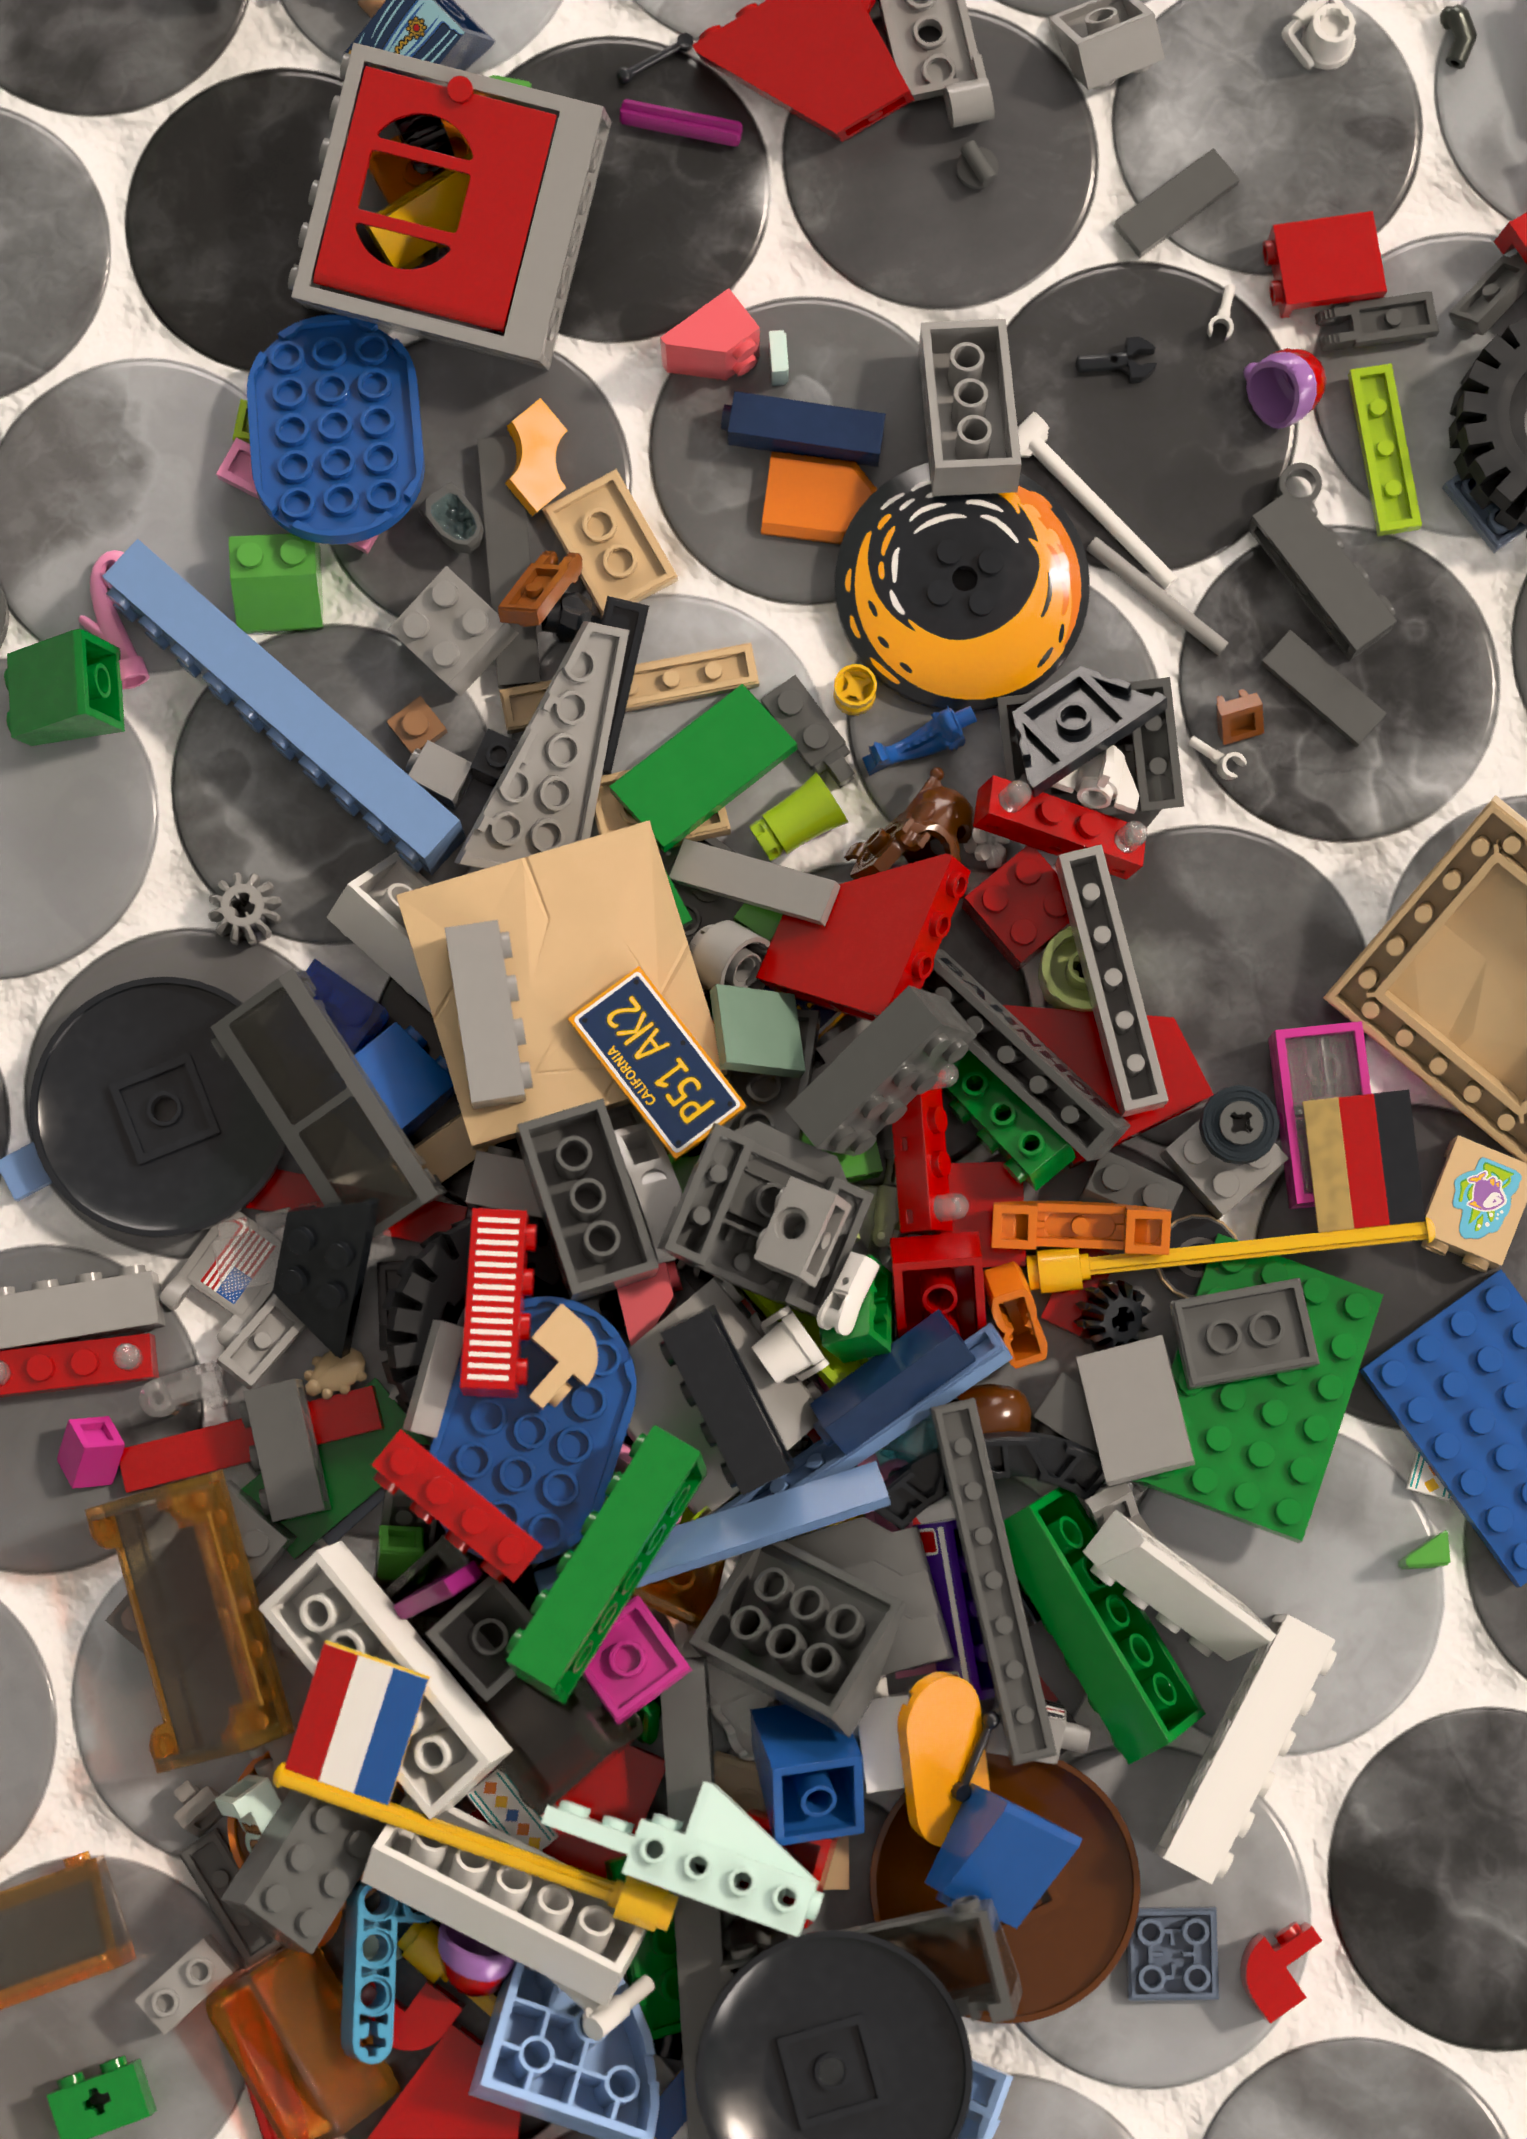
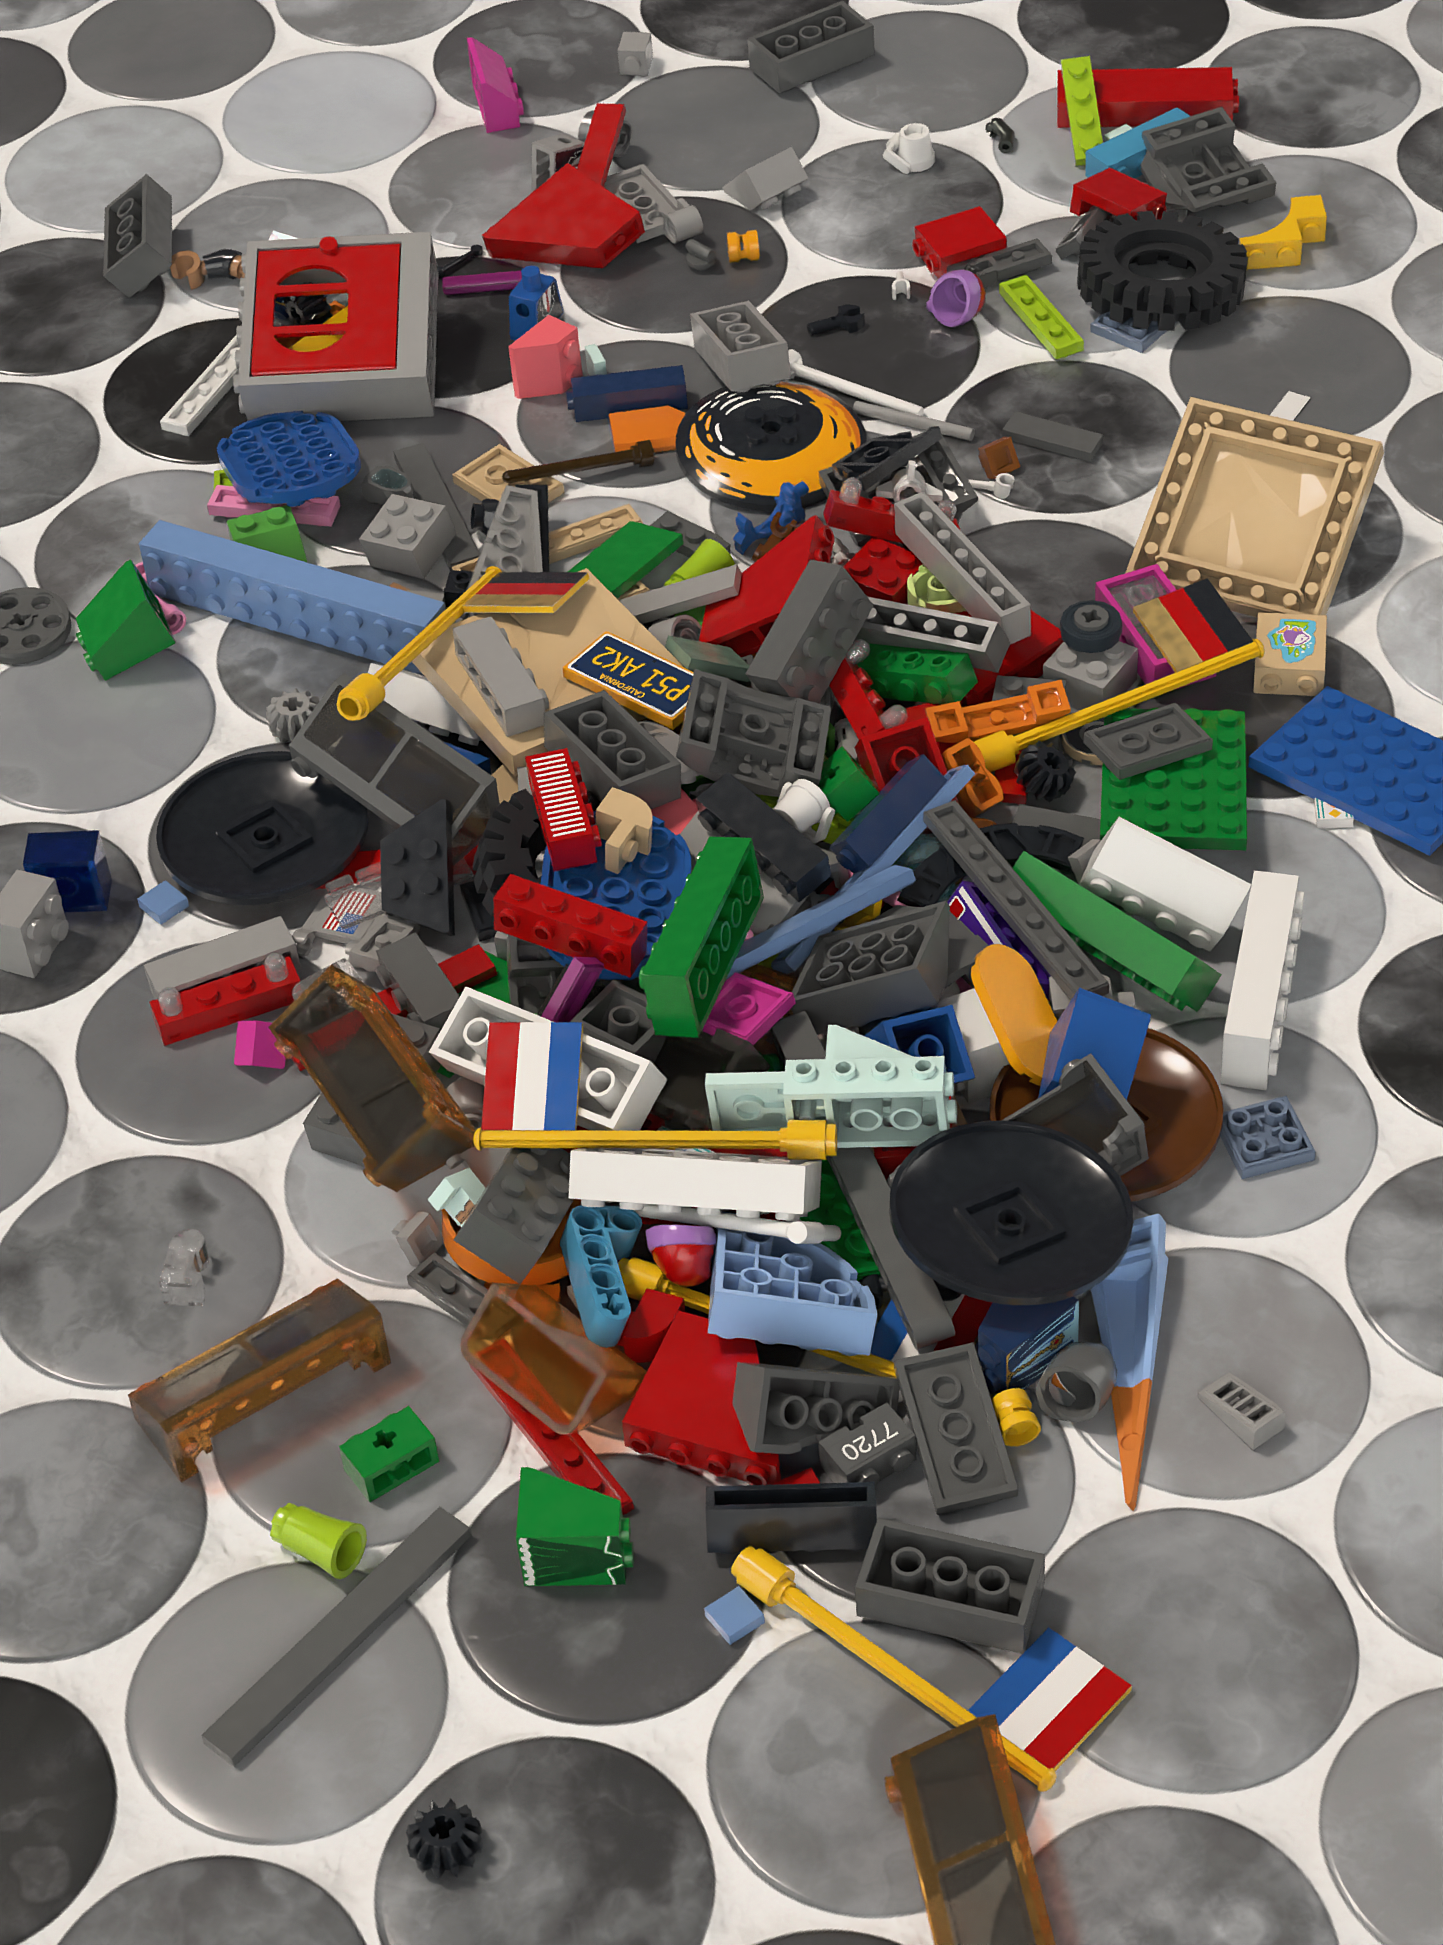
camera: 10 degrees left, 35 degrees down
(187, 1984) = (435, 1354): light grey brick -> none
(263, 224) = (204, 392): none -> white tile
(334, 1373) = (449, 948): tan piece -> none
(434, 1378) = (529, 856): light grey piece -> none
(529, 840) = (490, 594): none -> flag
(536, 441) = (439, 448): light orange tile -> none
(539, 589) = (465, 493): dark orange hinge -> none
(728, 214) = (532, 301): none -> blue torso
(787, 552) = (640, 453): none -> dark brown piece
(808, 1254) = (783, 720): light grey brick -> none
(849, 1291) = (833, 757): white bar -> none
(854, 681) = (713, 505): yellow wheel -> none
(961, 1790) = (1043, 1033): black hinge -> none
(1047, 170) = (750, 246): none -> light orange wheel
(1135, 1410) = (1084, 797): light grey tile -> none
(1176, 203) = (845, 244): dark grey tile -> none
(1265, 1970) = (1349, 1119): red brick -> none
(1319, 568) = (1023, 377): dark grey hinge -> none
(1430, 1554) = (1350, 848): bright green slope -> none

